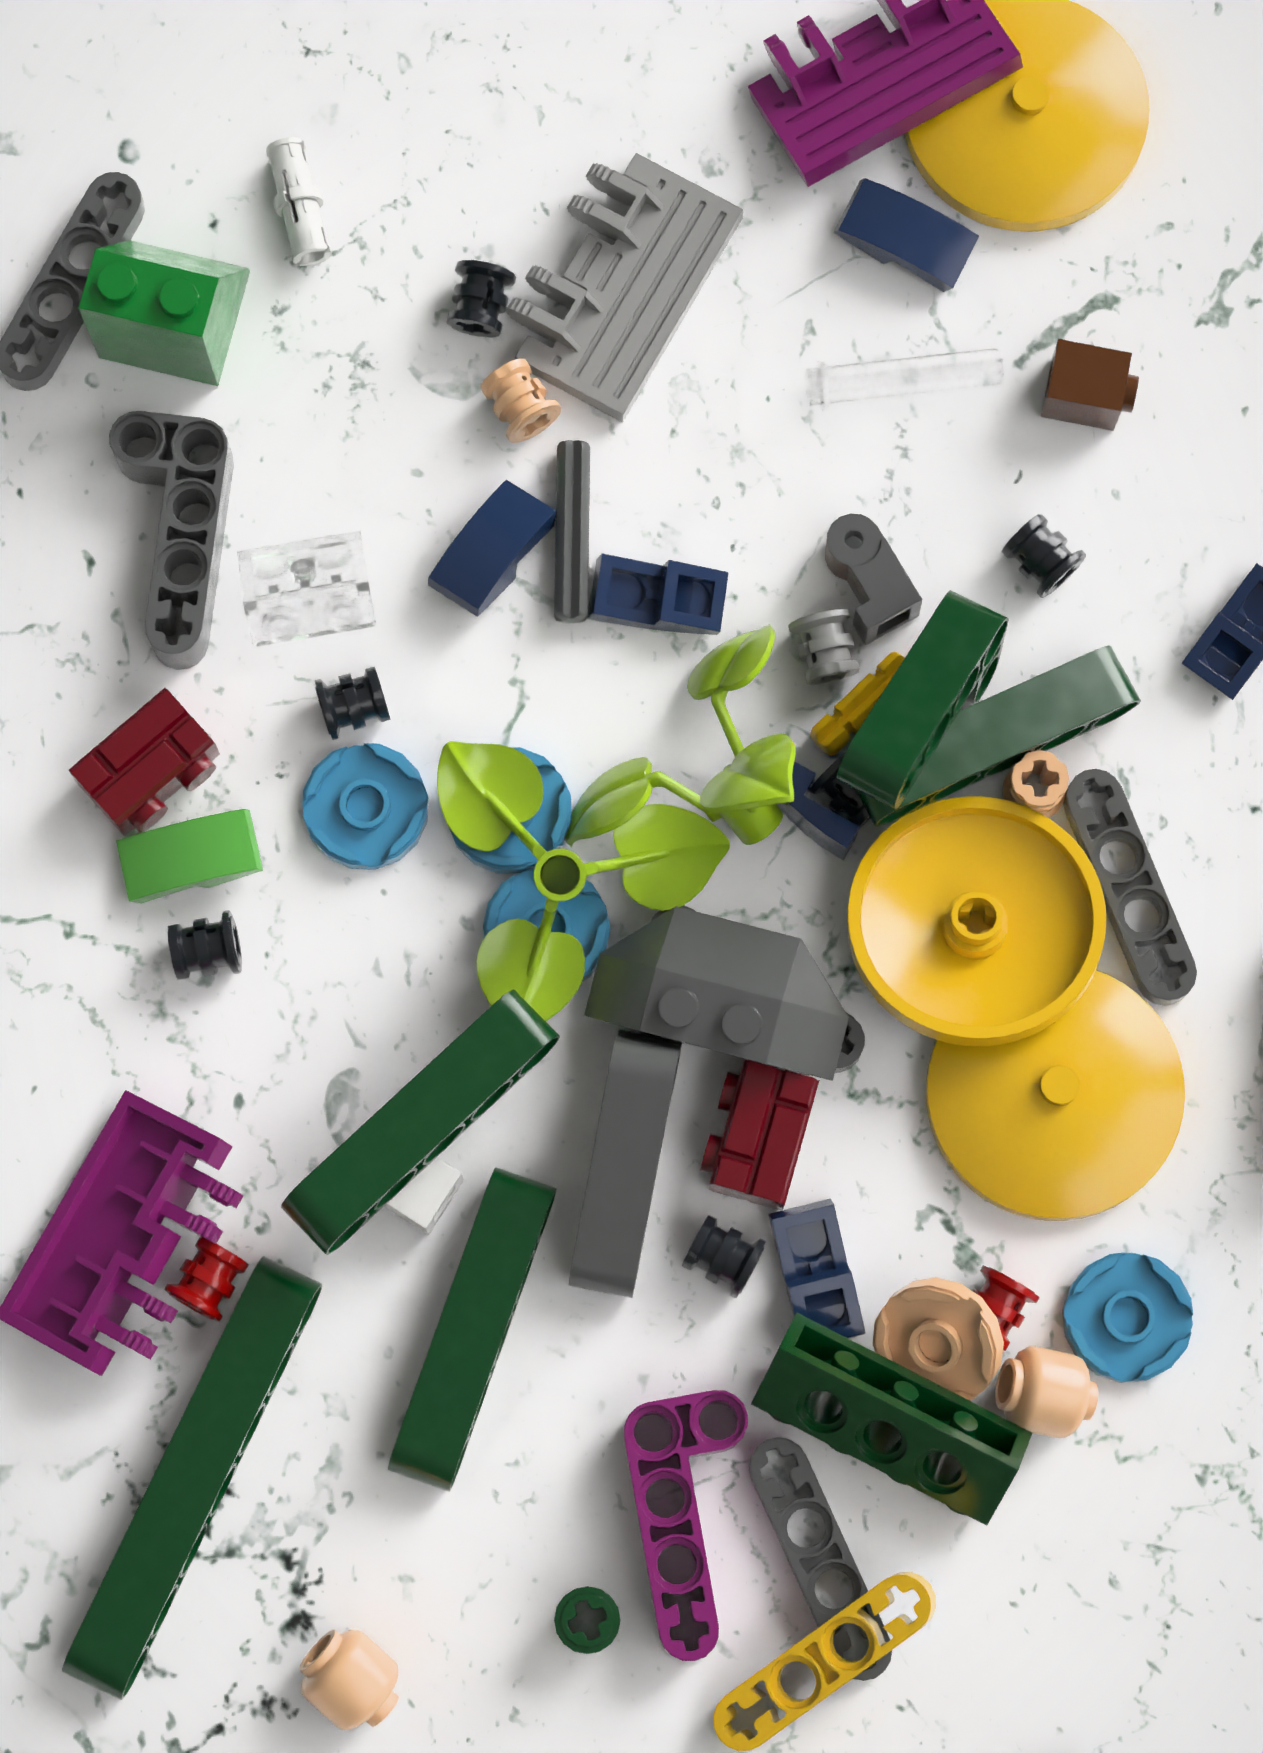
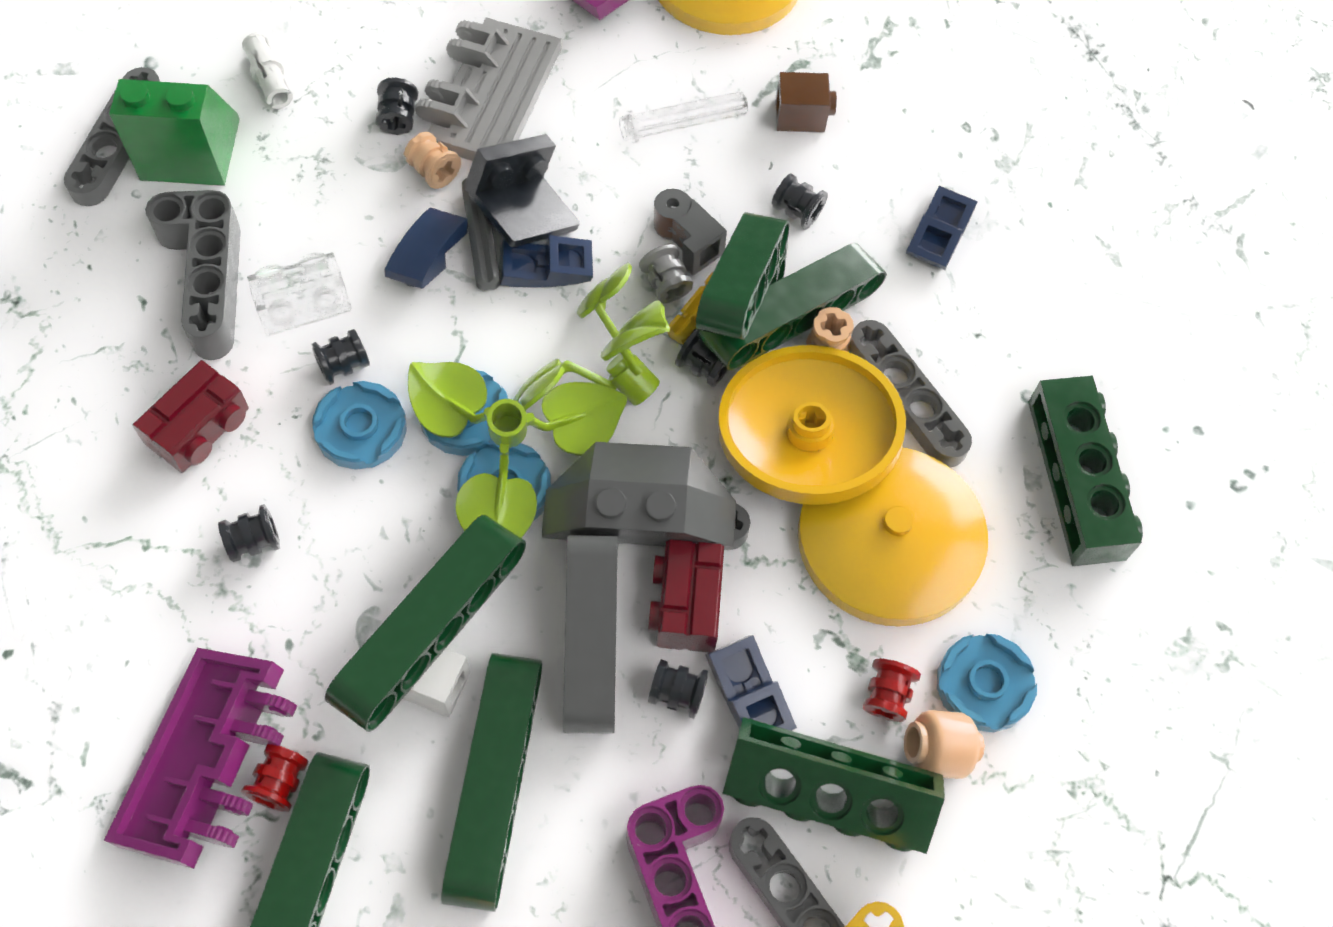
camera: 15 degrees left, 15 degrees down
(189, 855) = (235, 471): bright green slope -> none
(638, 490) = (514, 194): none -> black bracket
(816, 821) = (677, 378): dark blue slope -> none
(908, 232) = (660, 34): dark blue slope -> none
(941, 1335) = (857, 713): light nougat tile -> none

